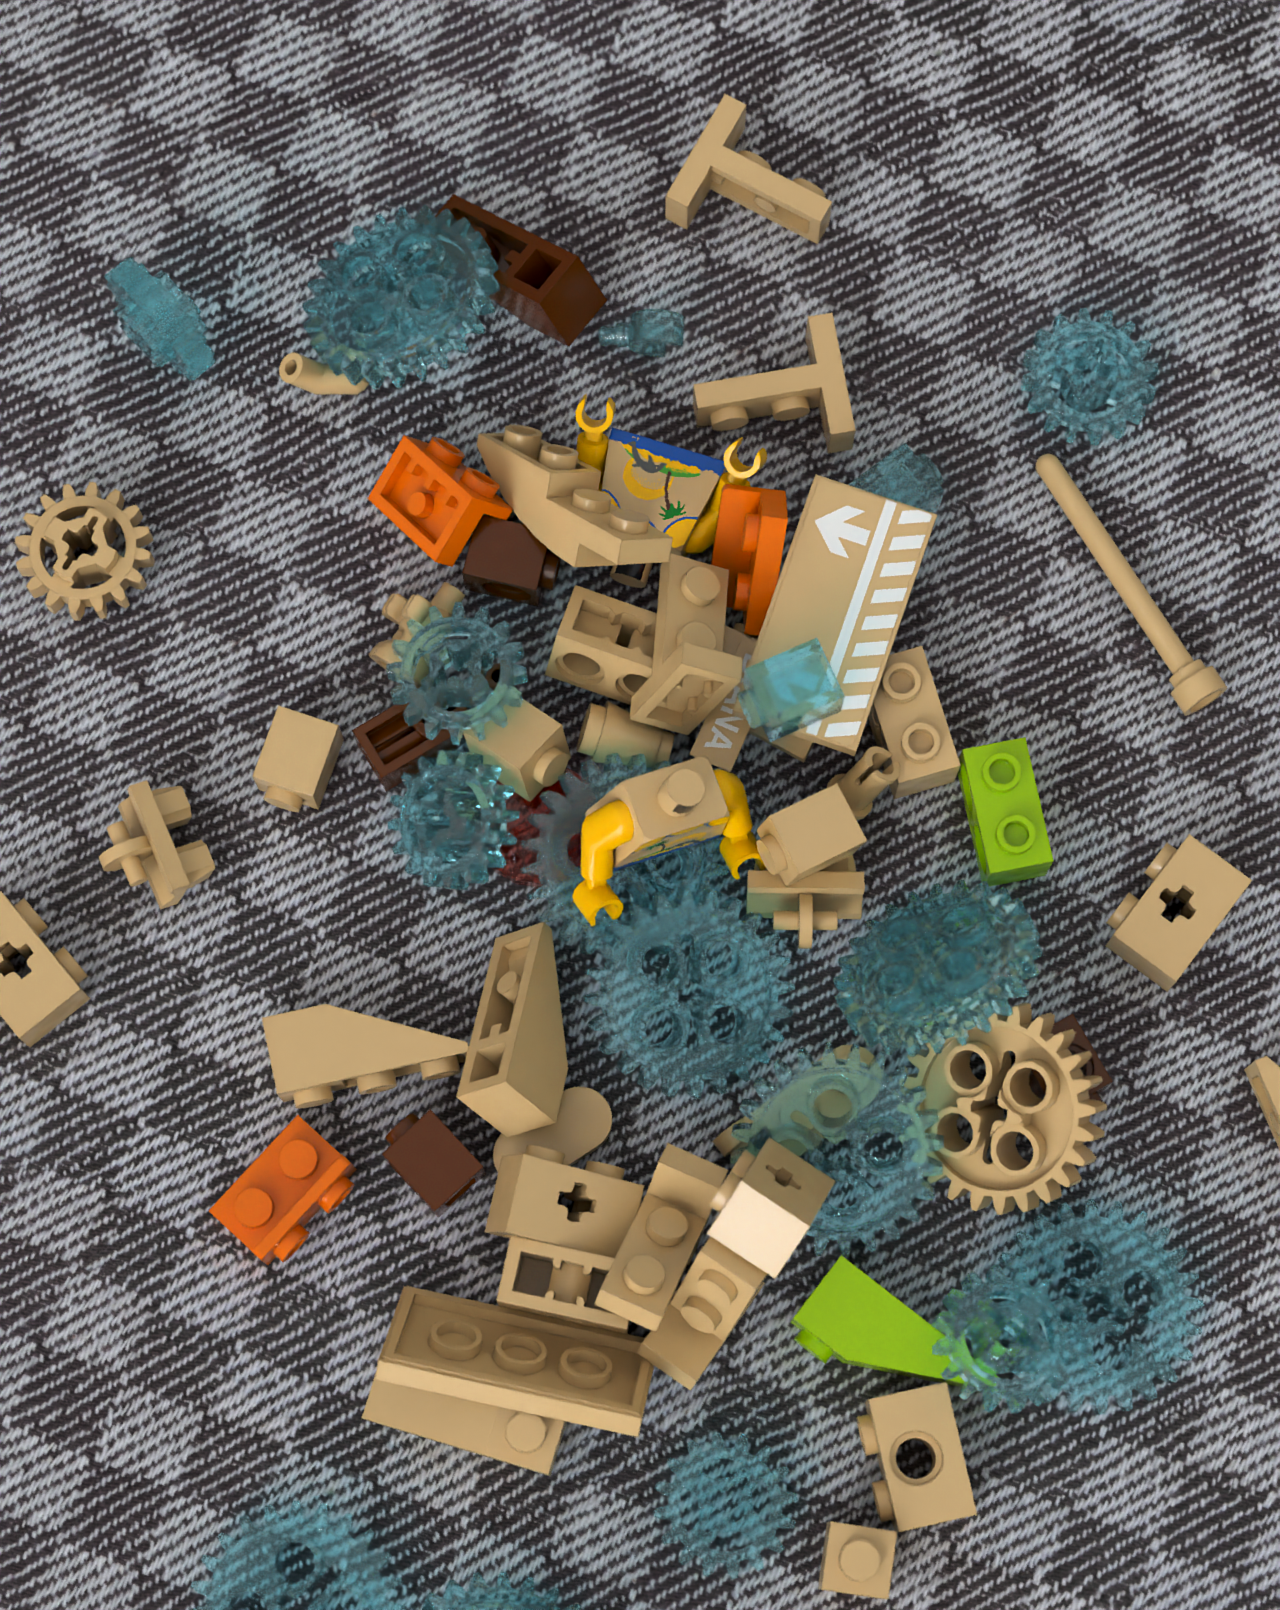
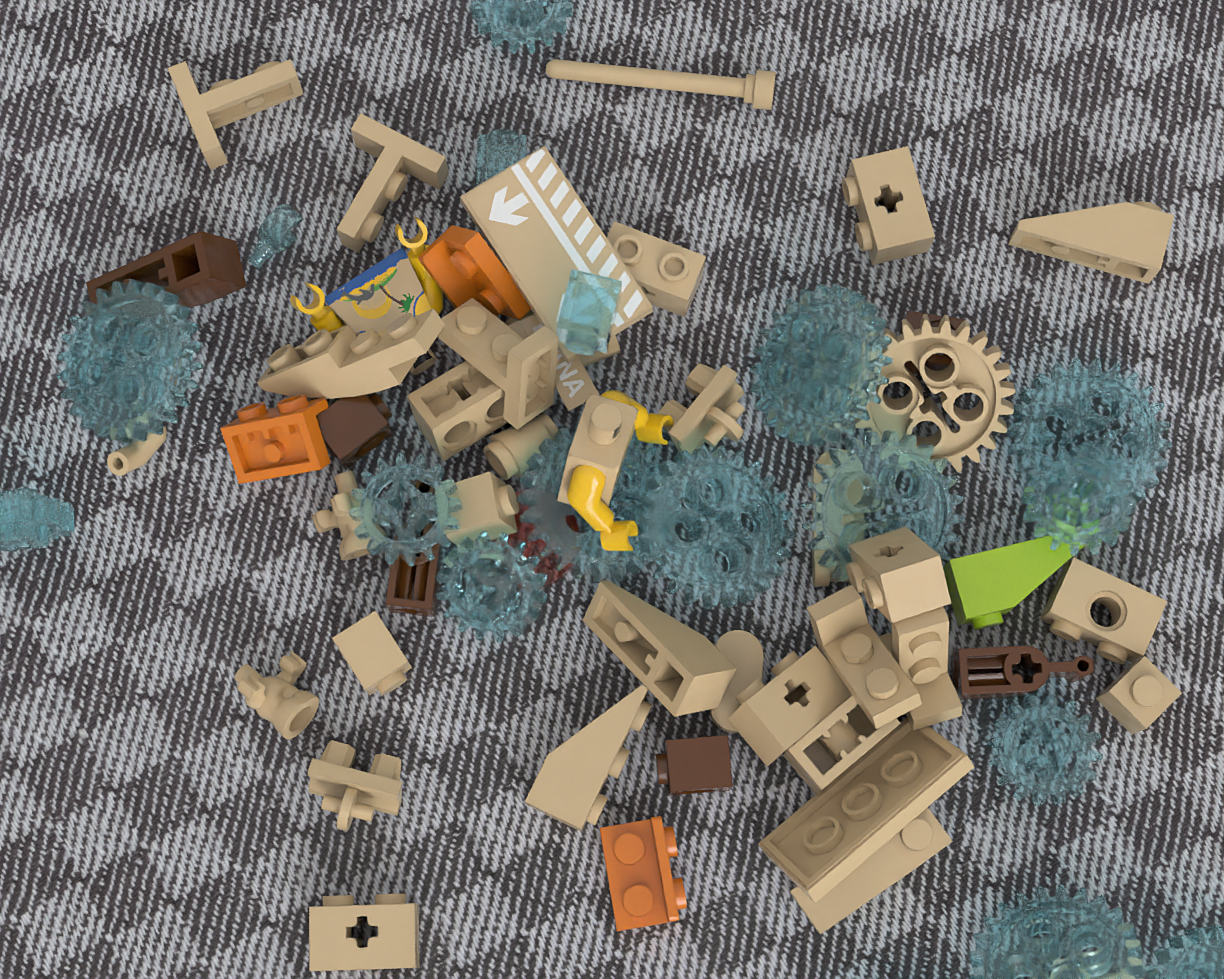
camera: 55 degrees left, 0 degrees up
(74, 574) = (105, 692): tan gear -> none
(184, 701) = (277, 698): none -> tan piece
(782, 1390) = (1000, 682): none -> reddish brown piece
(809, 835) = (681, 376): tan brick -> none
(864, 780) = (669, 337): tan pin -> none
(1004, 812) = (751, 256): lime brick -> none

